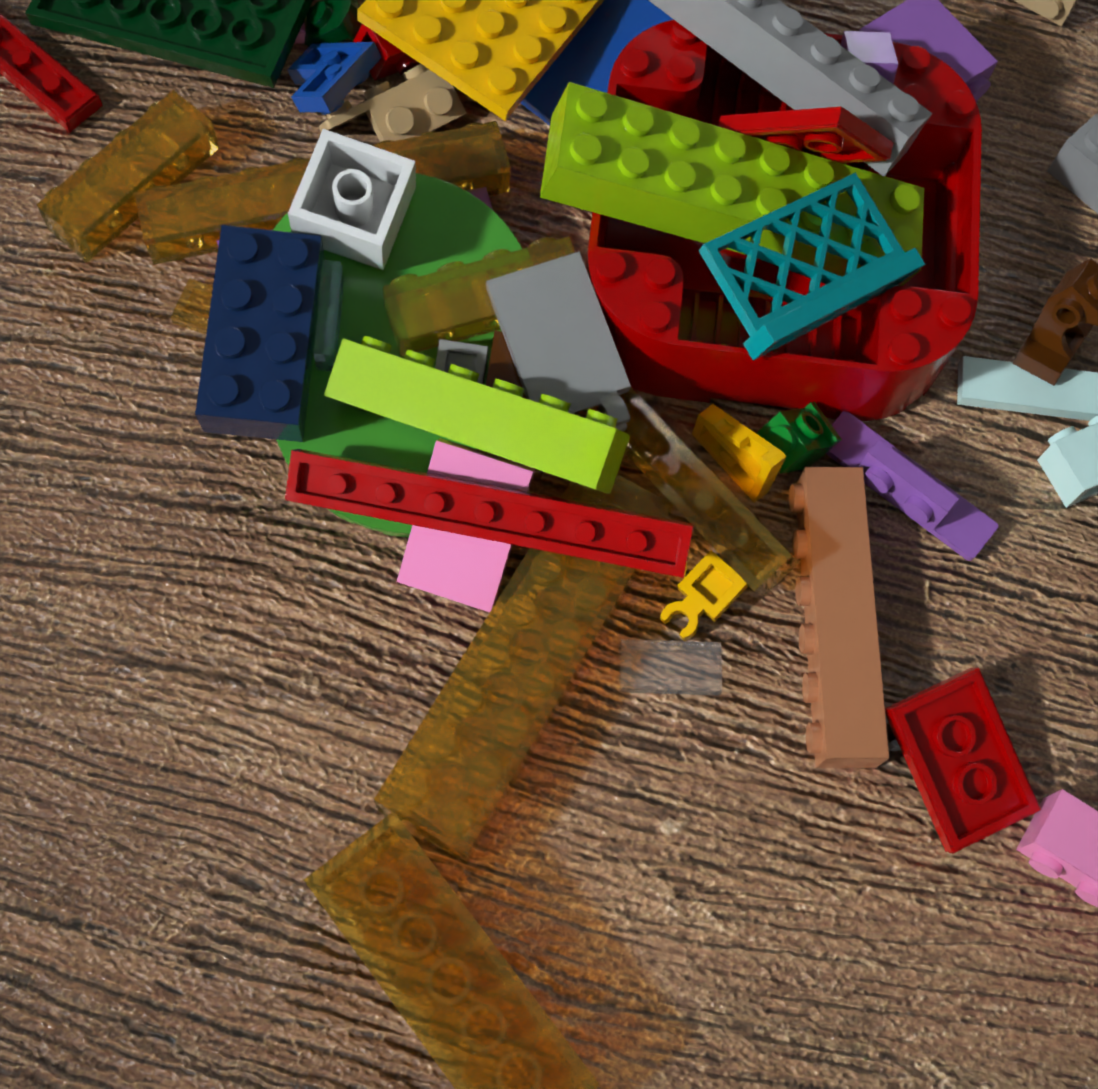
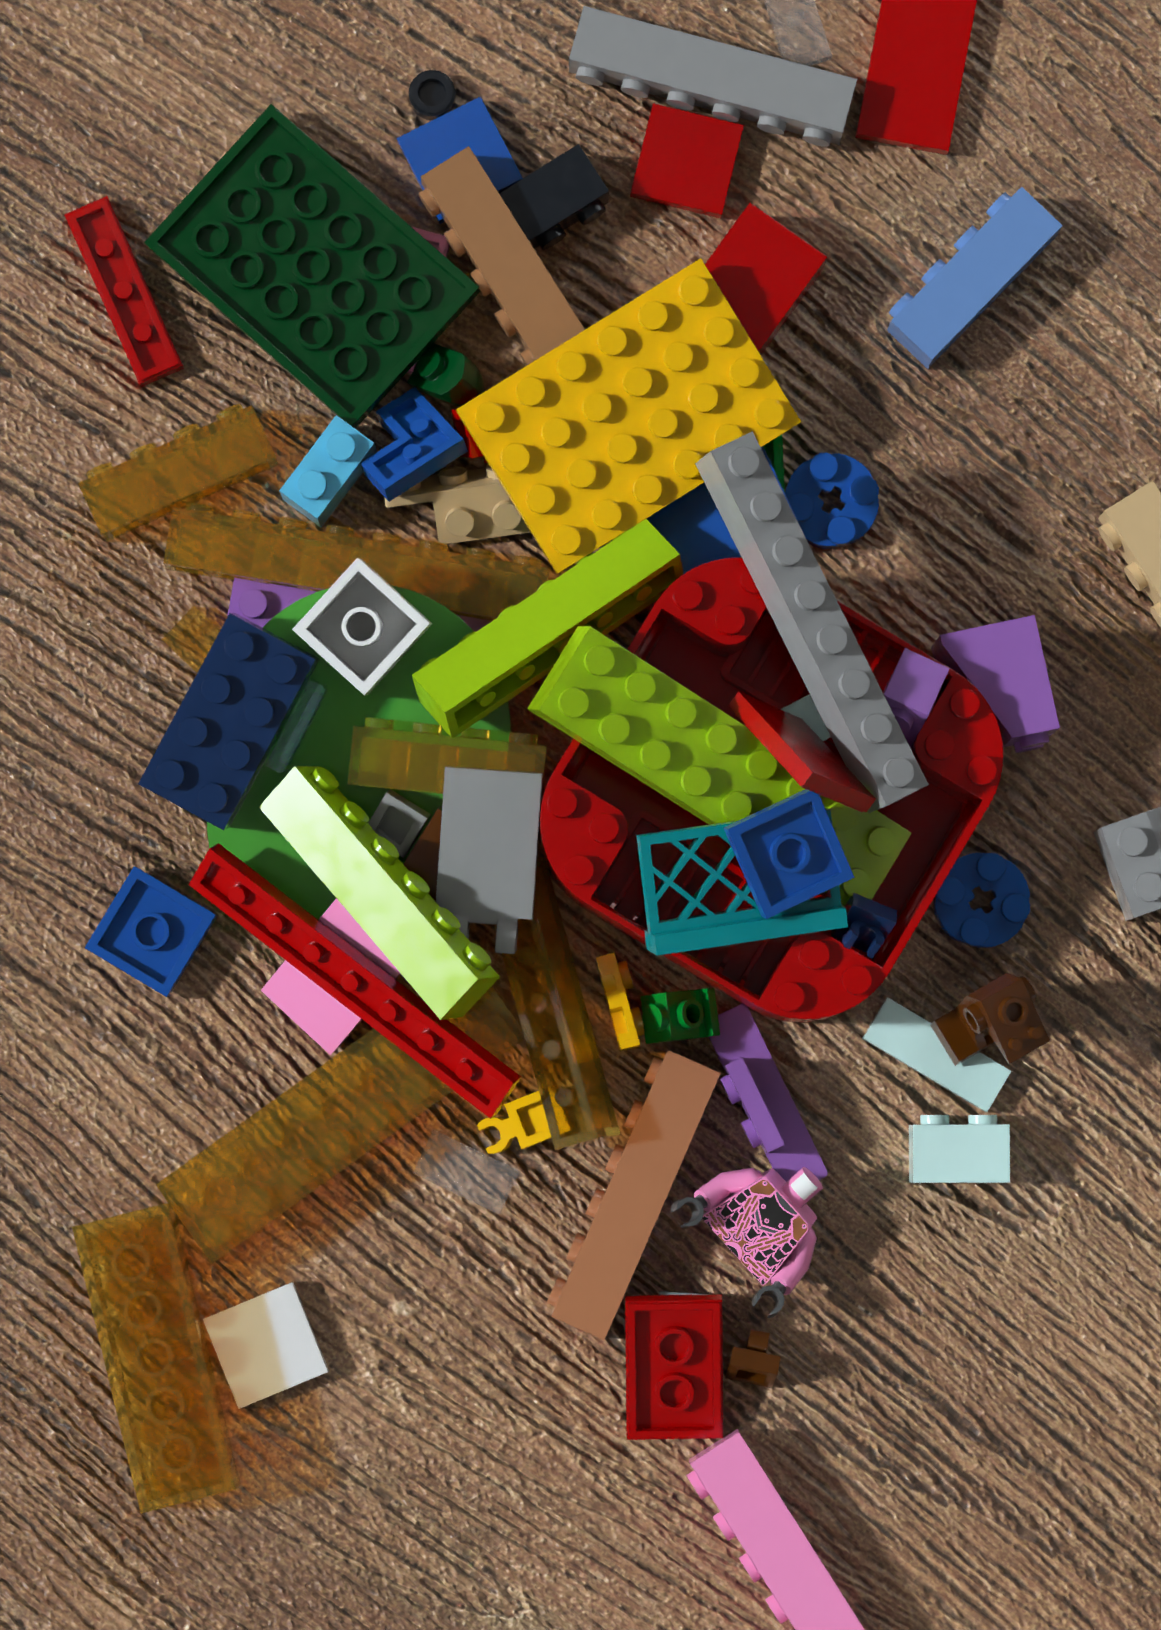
camera: 30 degrees right, 15 degrees up
(264, 120) = (327, 471): none -> medium azure piece
(266, 570) = (151, 931): none -> blue plate
(509, 160) = (530, 636): none -> lime brick
(554, 924) = (265, 1345): none -> white tile
(844, 211) = (788, 852): none -> blue plate
(938, 270) = (867, 925): none -> dark blue tile
(973, 588) = (761, 1223): none -> torso
(1018, 248) = (1008, 907): none -> blue plate
(1032, 722) = (753, 1363): none -> reddish brown tile

